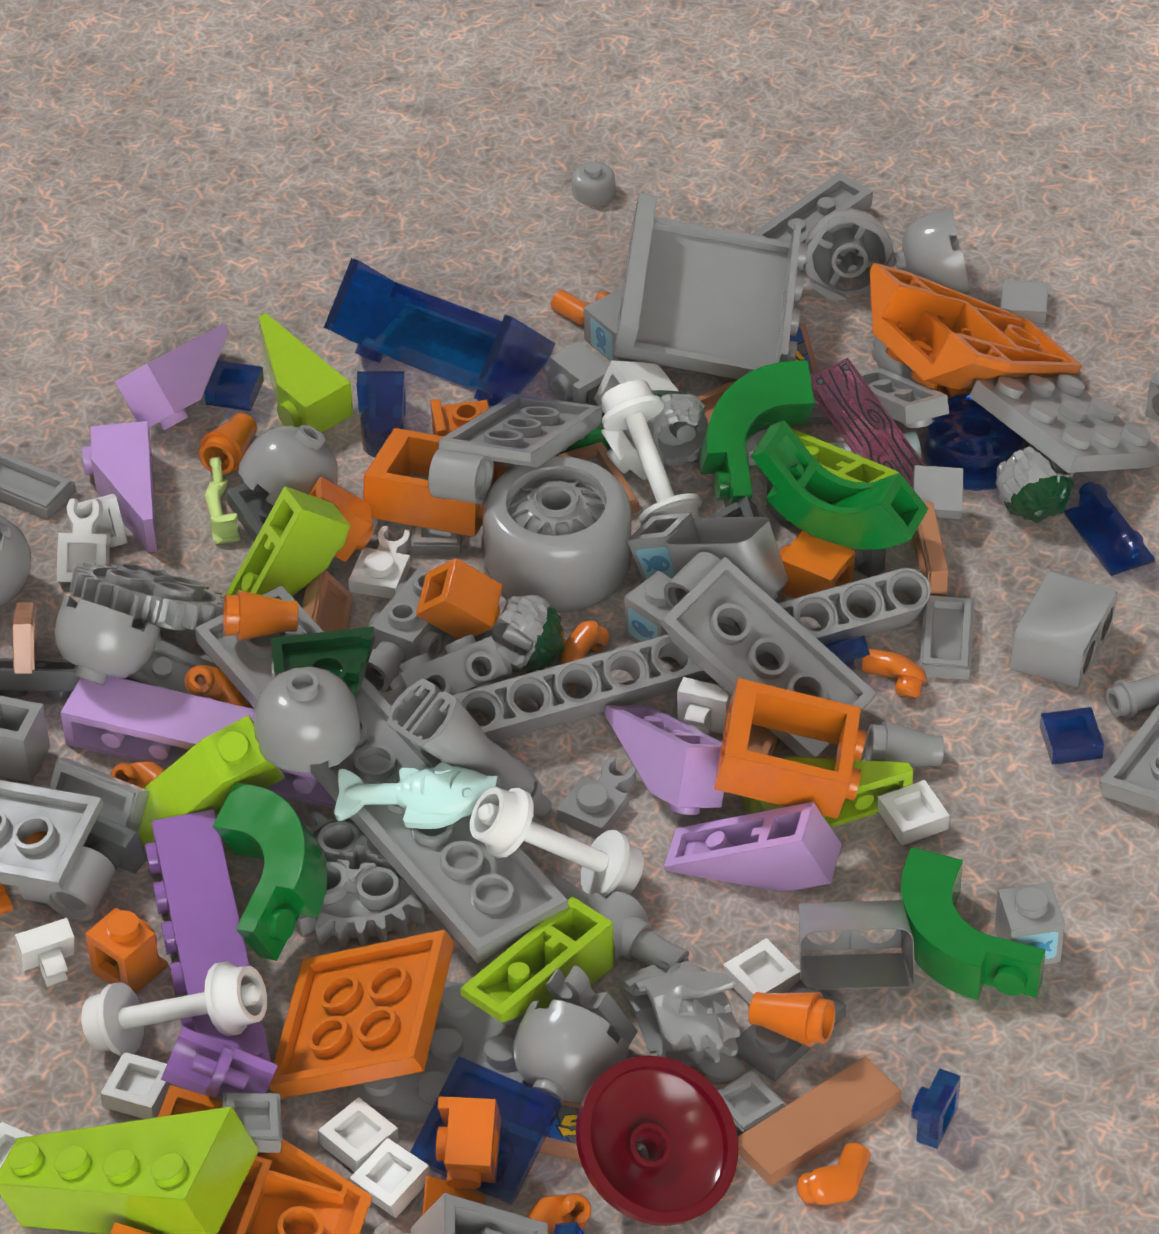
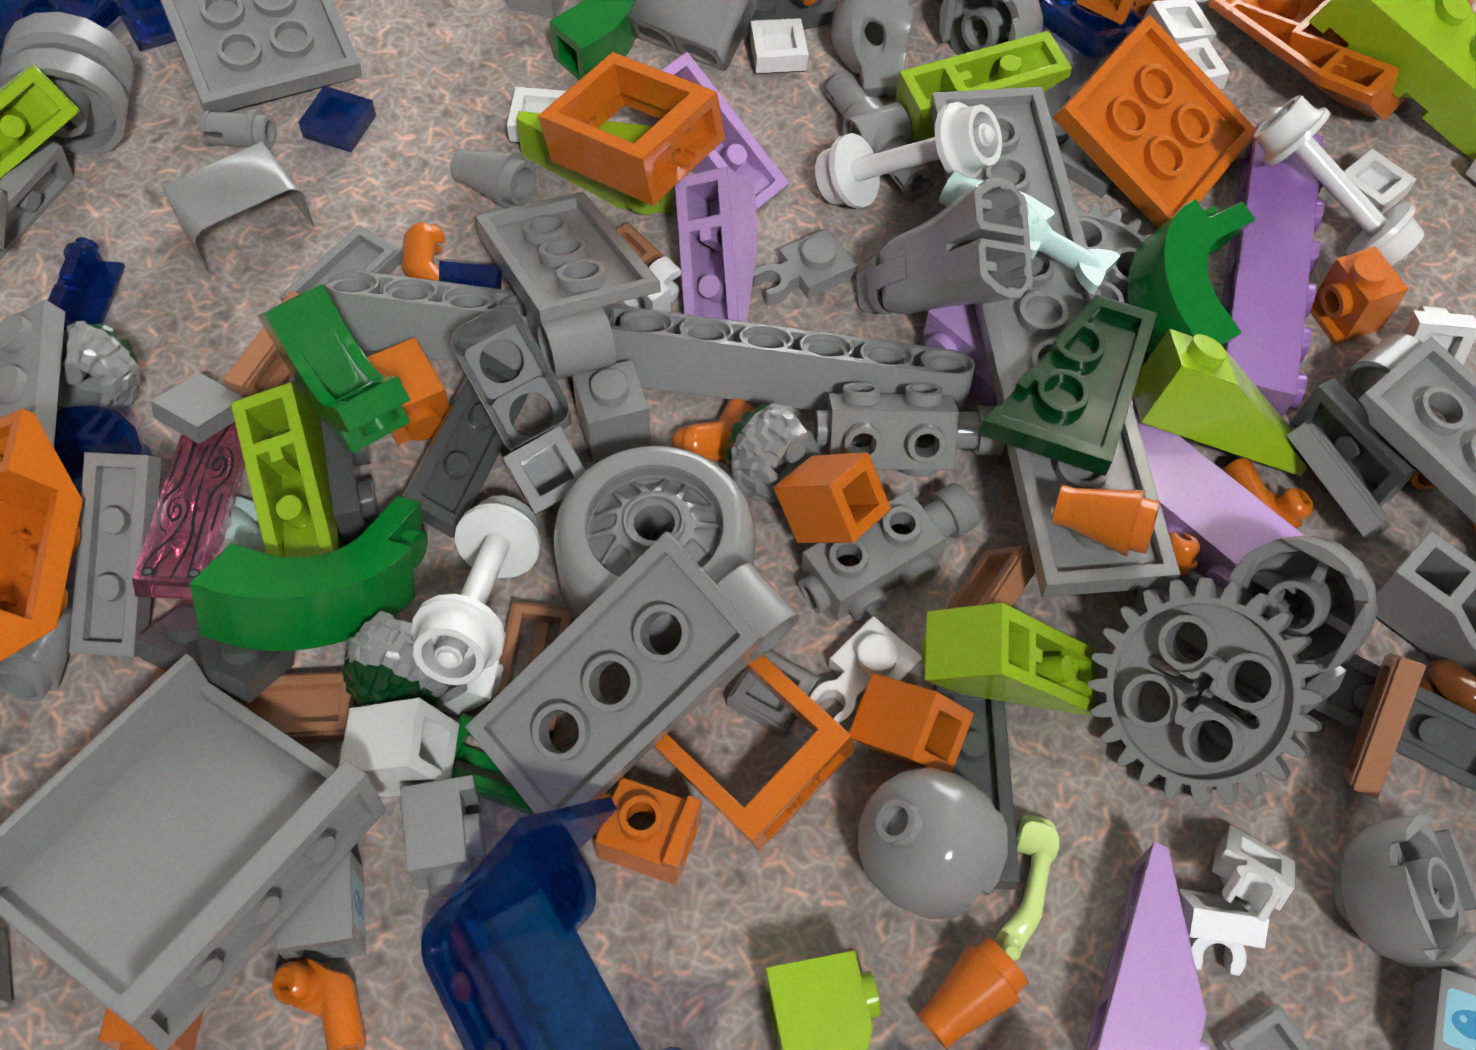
camera: 155 degrees left, 15 degrees up
(215, 1067) = (1328, 70): medium lavender hips -> none
(260, 1116) = (1306, 46): light grey tile -> none
(306, 719) = (1127, 306): light grey cylinder -> none
(381, 406) = (741, 905): clear blue leg -> none
(577, 990) = (952, 37): light grey plate -> none

